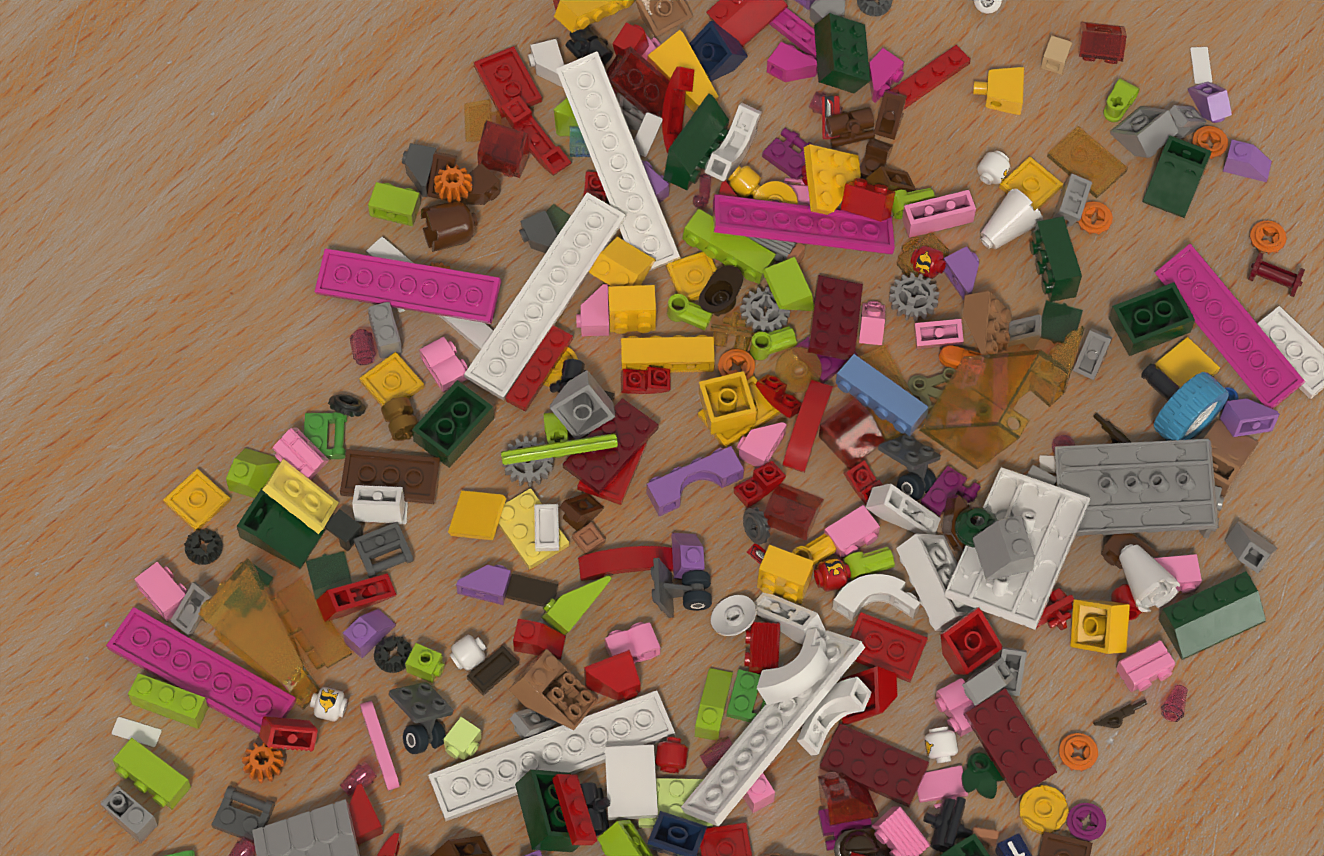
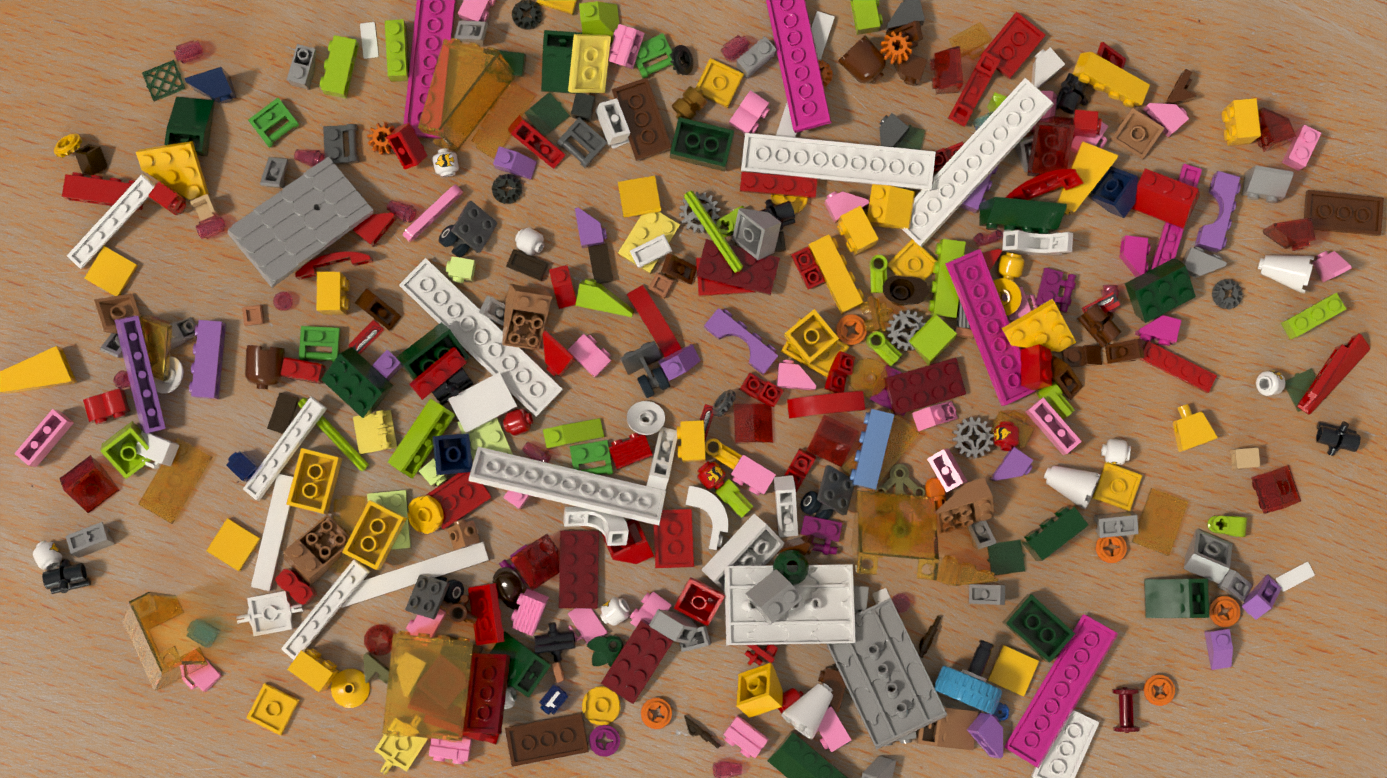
camera: 65 degrees right, 20 degrees up
(424, 663) = (508, 215): lime brick -> none
(647, 133) = (1015, 172): white sticker -> none
(797, 676) = (614, 487): white arch -> none

